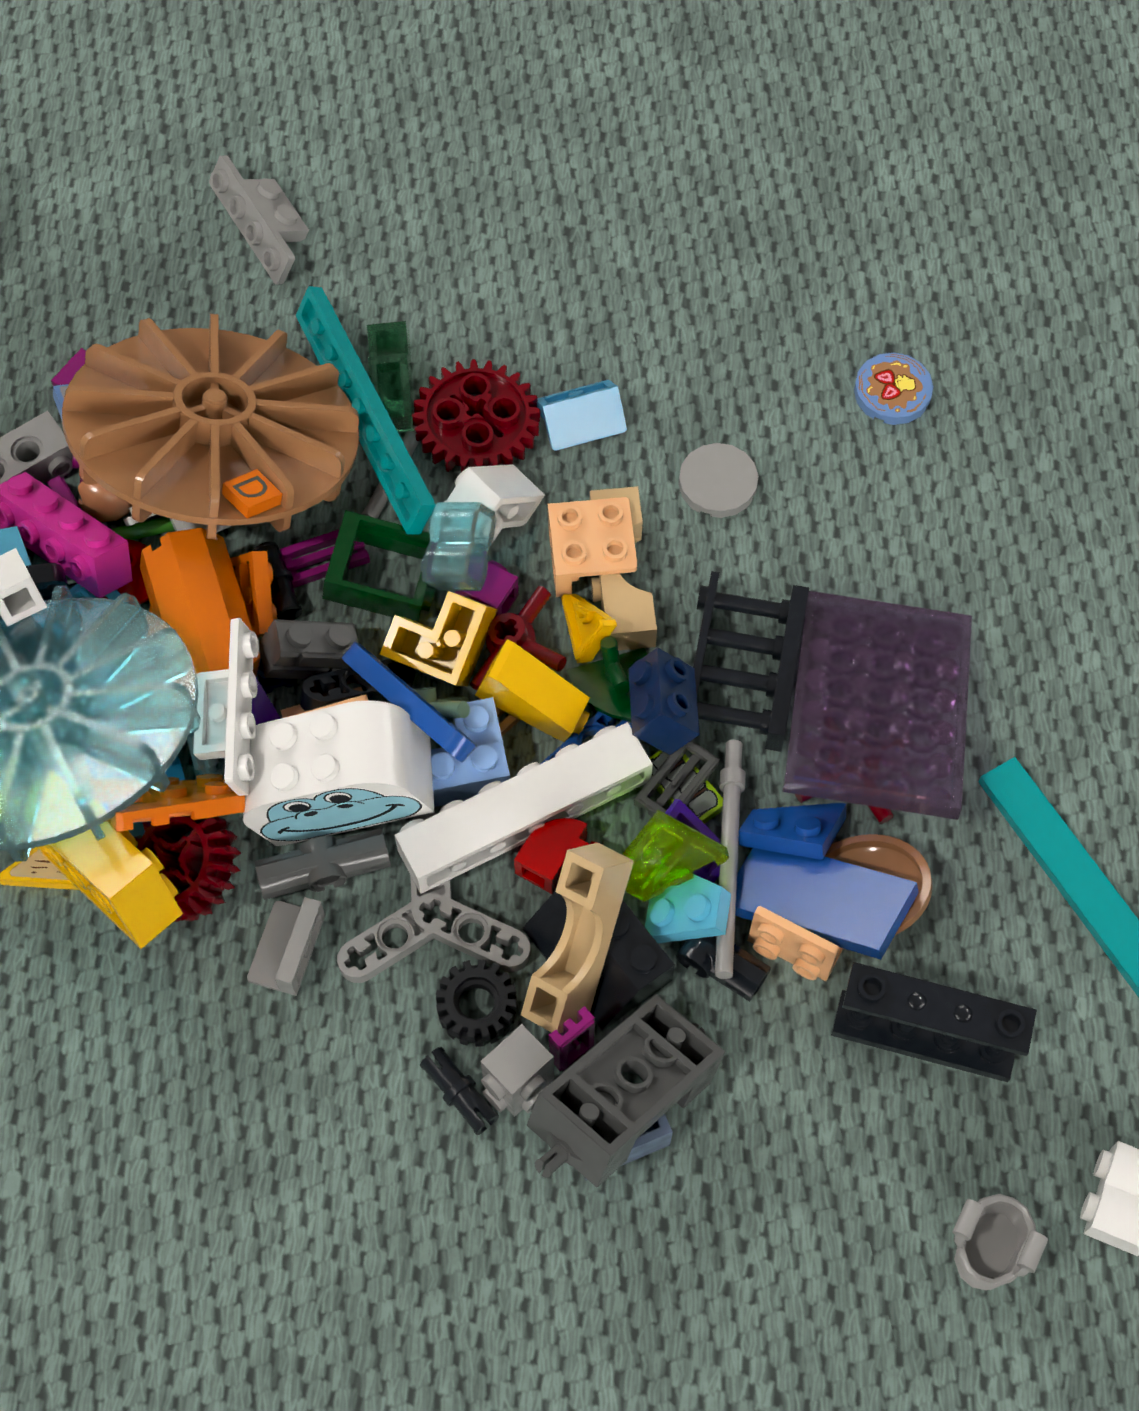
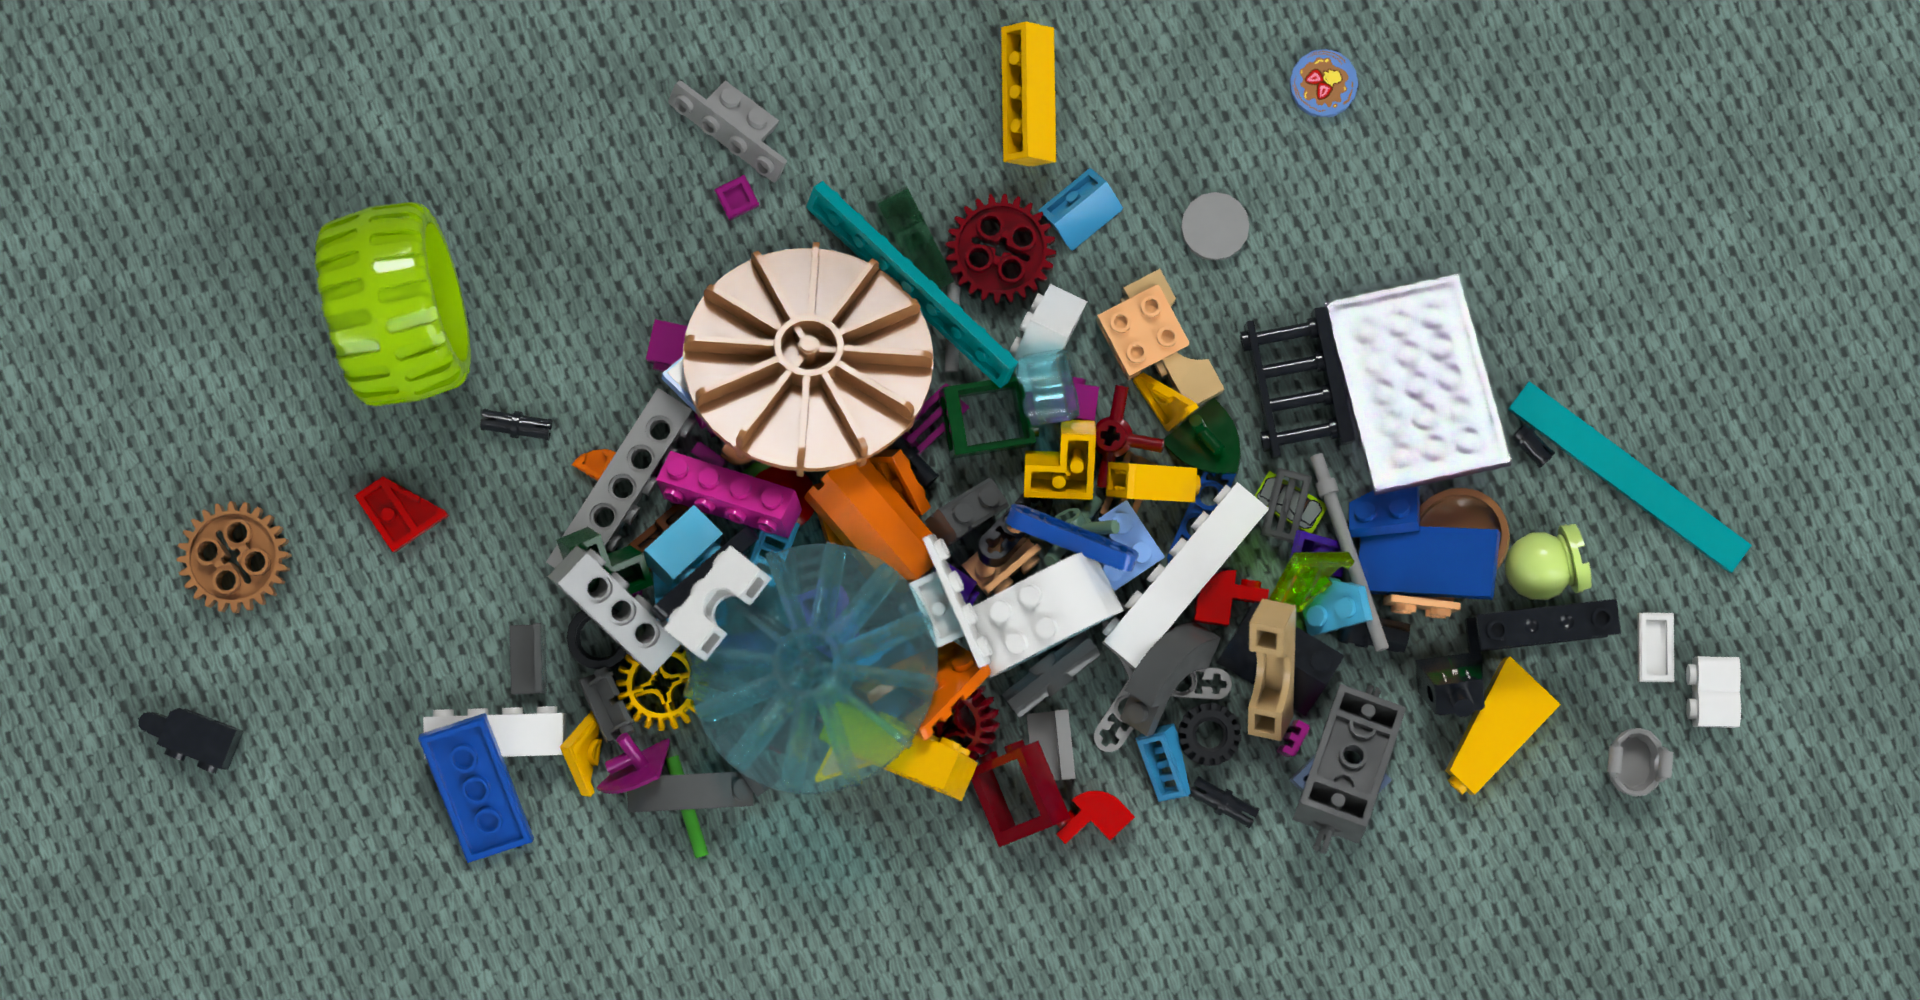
camera: 20 degrees left, 20 degrees up
(230, 283) = (737, 197): none -> magenta tile
(243, 981) = (1040, 782): none -> dark red window
(251, 493) = (881, 421): orange tile -> none
(302, 1034) = (1101, 809): none -> red brick
(402, 989) = (1174, 759): none -> dark azure slope
(448, 893) = (1162, 669): none -> dark grey arch
(516, 1072) = (1265, 779): light grey brick -> none
(573, 286) = (1028, 94): none -> yellow brick
(663, 701) = (1256, 452): dark blue brick -> none
(796, 1052) = (1452, 683): none -> black torso
(839, 1130) = (1512, 713): none -> yellow slope
(965, 954) = (1546, 564): none -> yellowish green tile
(993, 826) = (1532, 445): none -> black pin
(1067, 1117) = (1655, 647): none -> white tile

